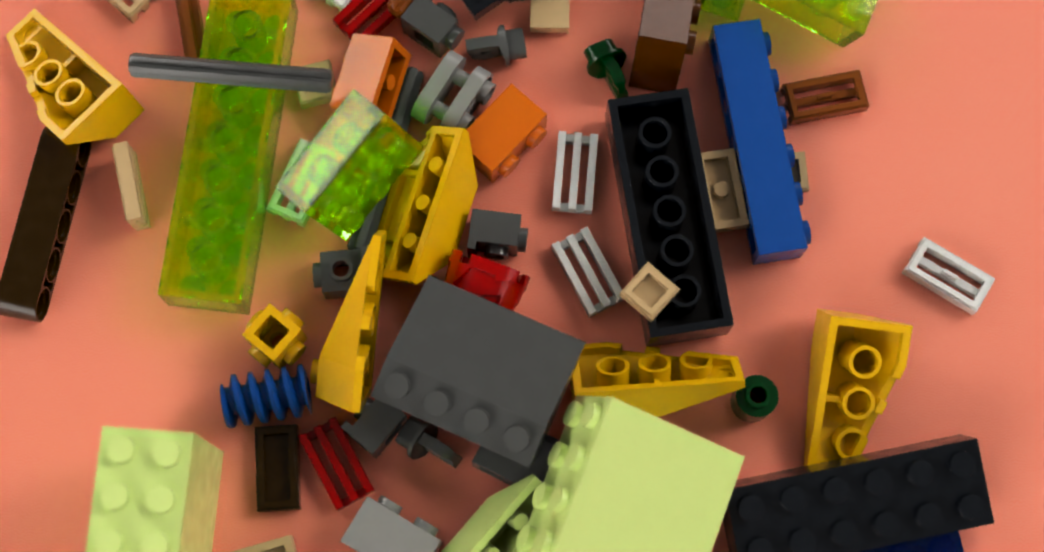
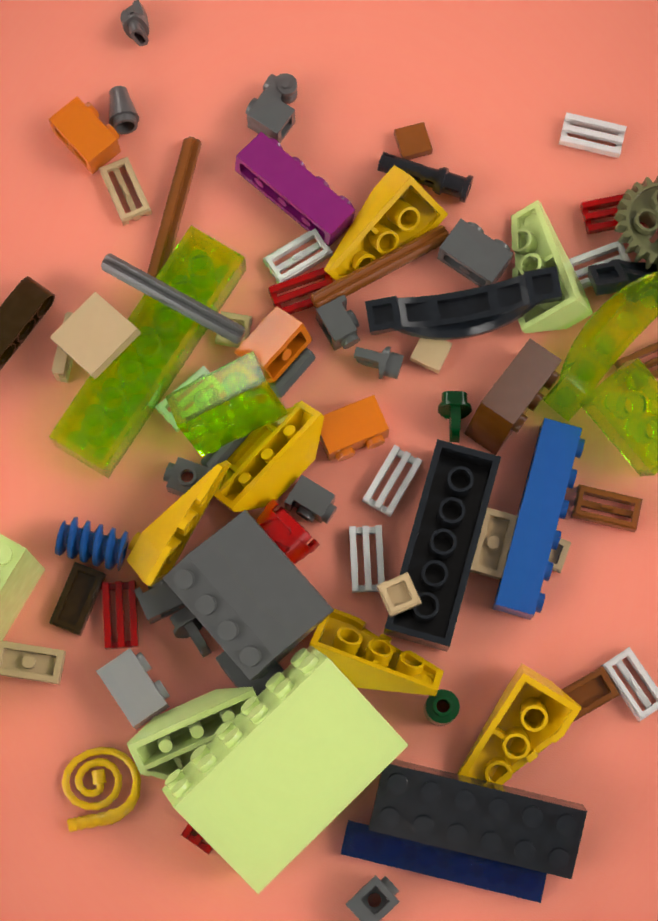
camera: 25 degrees right, 0 degrees up
(69, 87) = (55, 257): yellow wedge -> none
(158, 154) = (95, 335): none -> tan tile
(265, 327) = (112, 494): yellow brick -> none
(475, 89) = (348, 384): light grey brick -> none
(908, 301) = (592, 691): none -> dark orange tile

